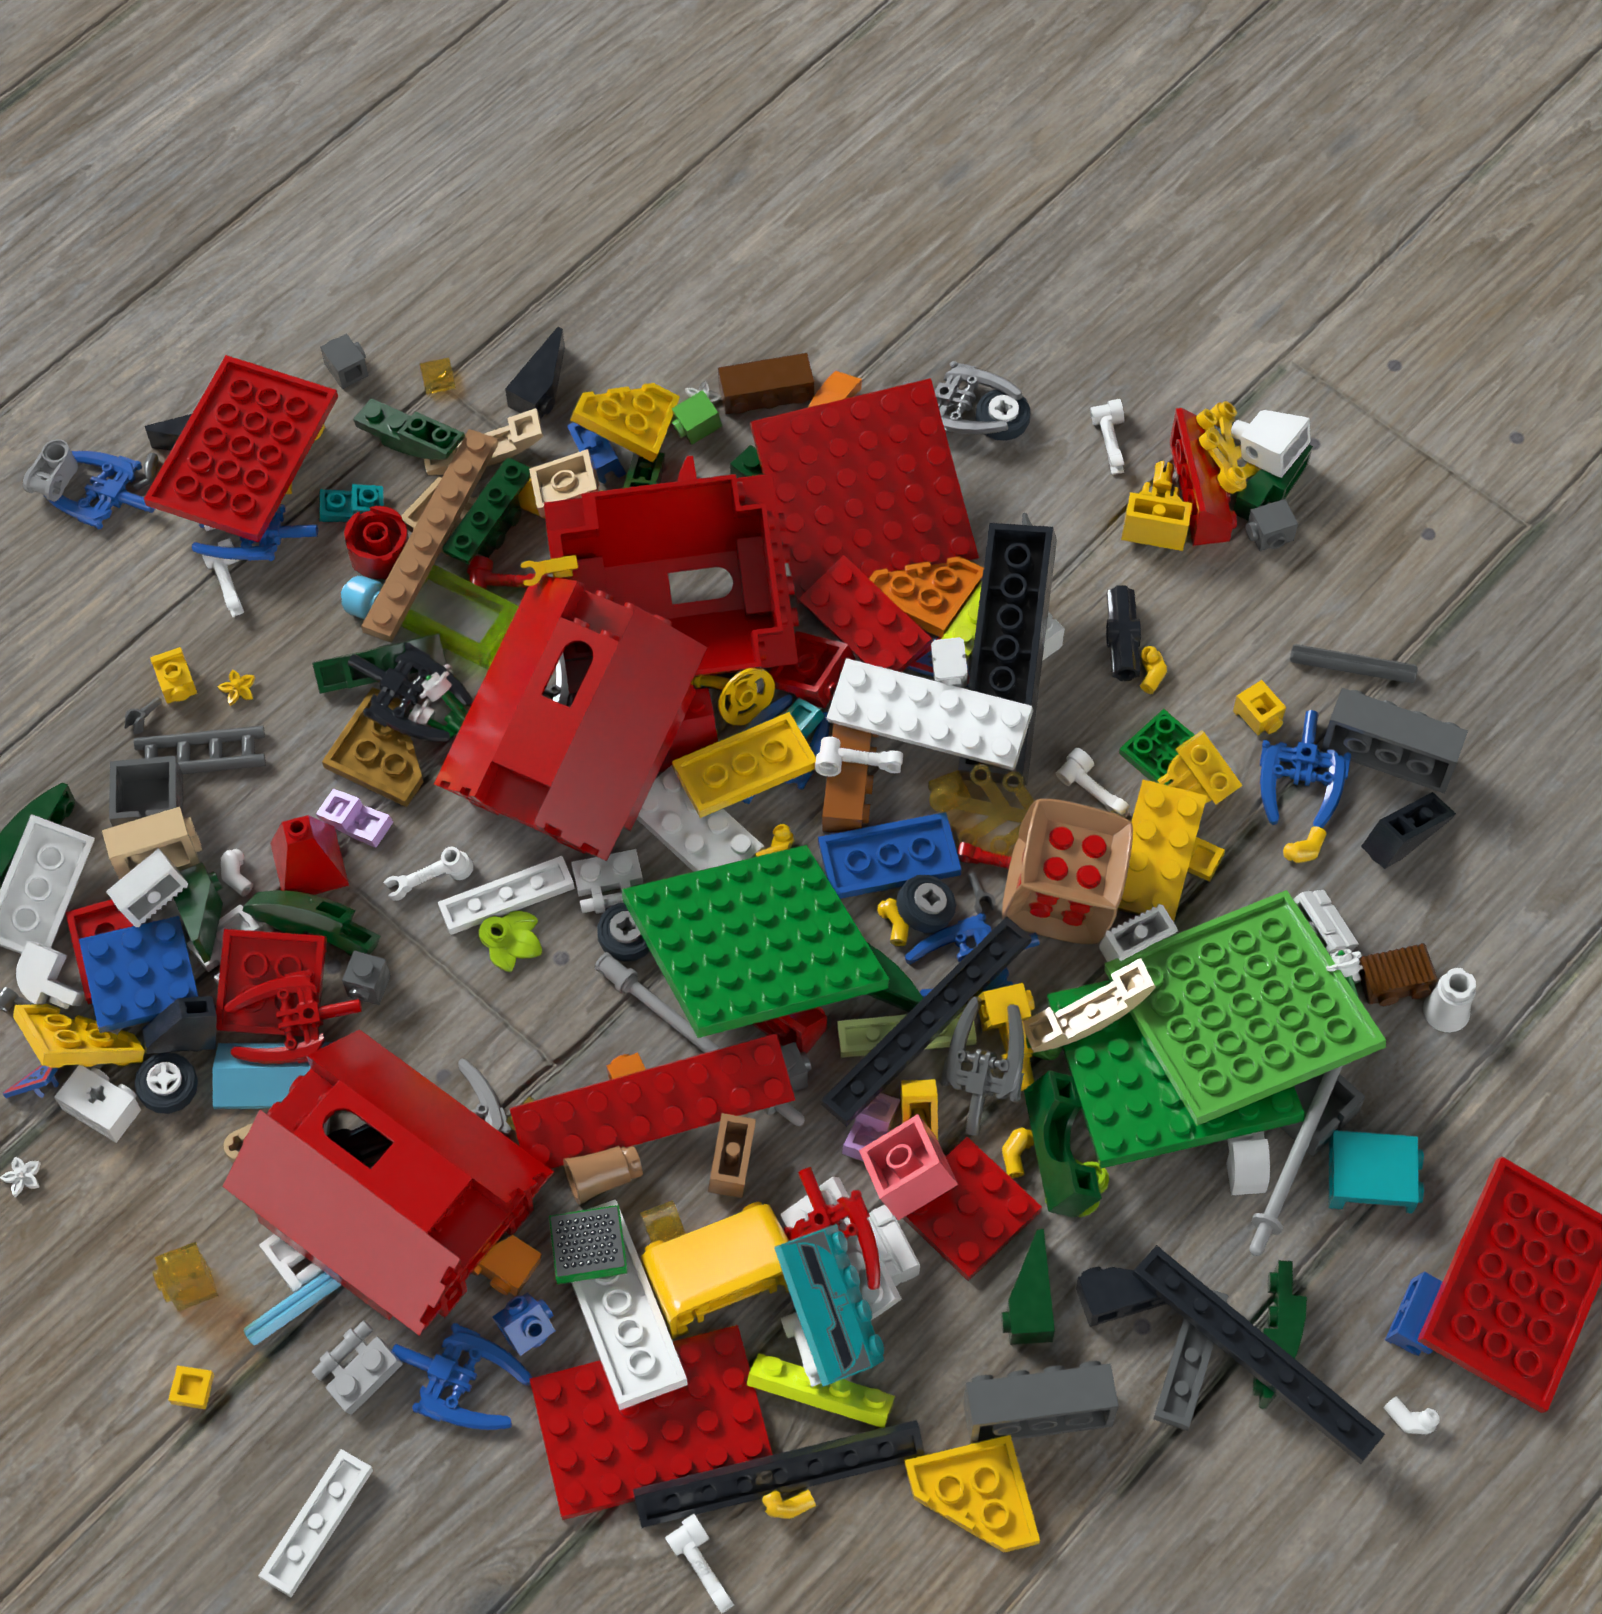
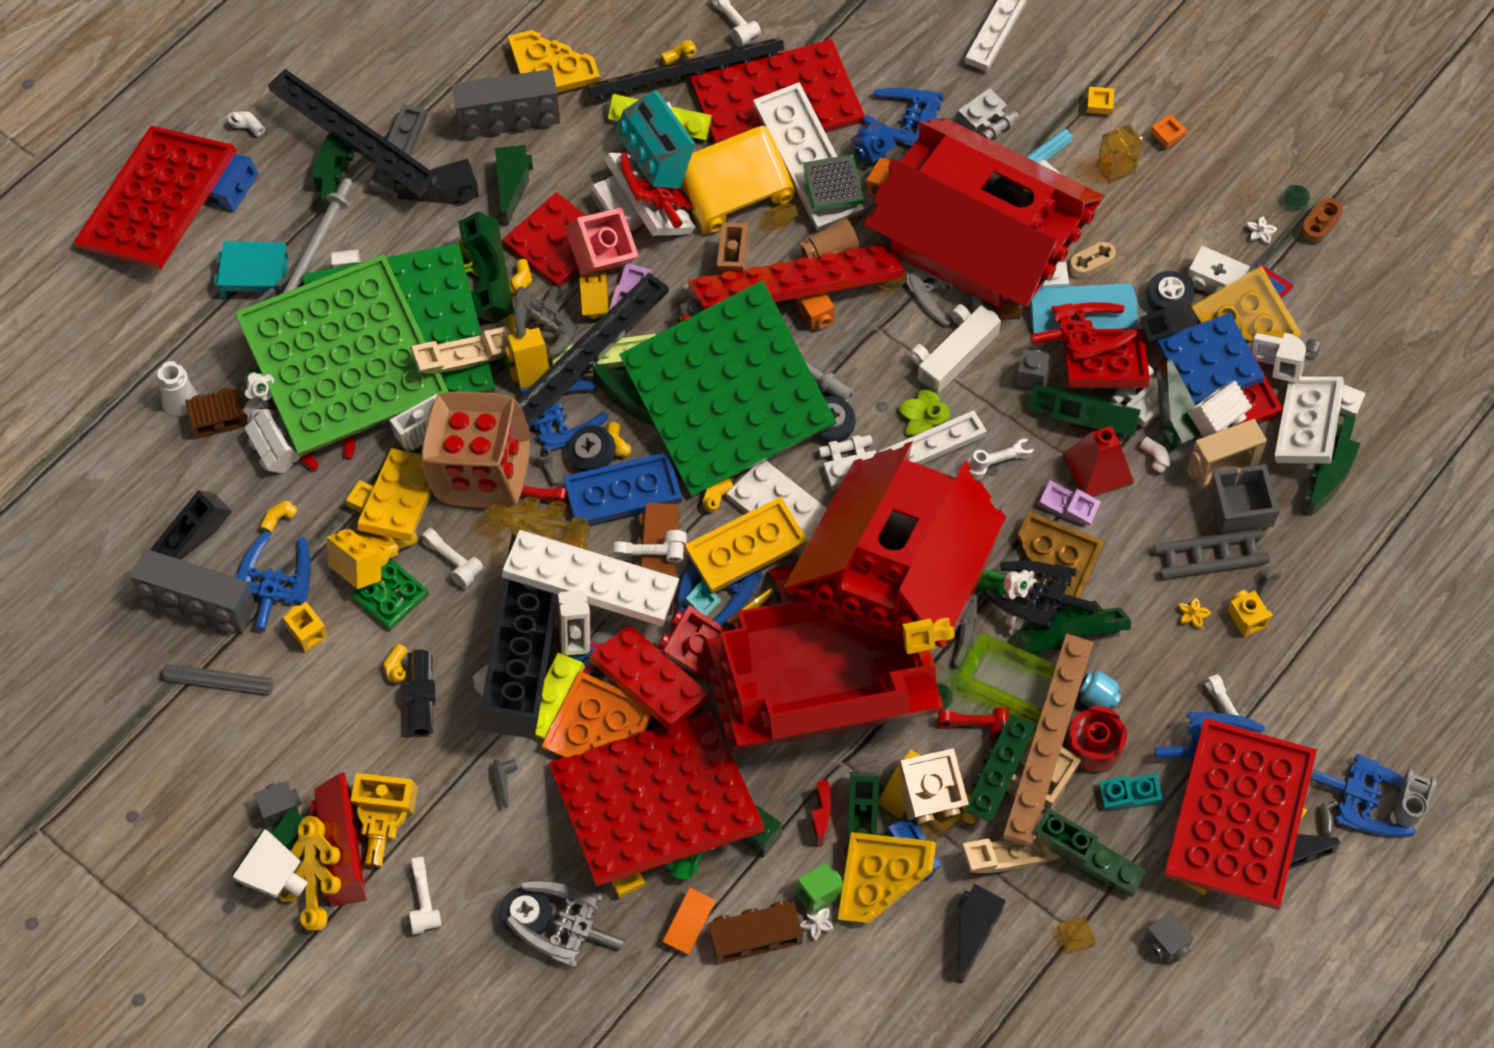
camera: 175 degrees right, 0 degrees up
(107, 1331) = (1168, 131): none -> orange plate
(453, 1015) = (959, 349): none -> white brick

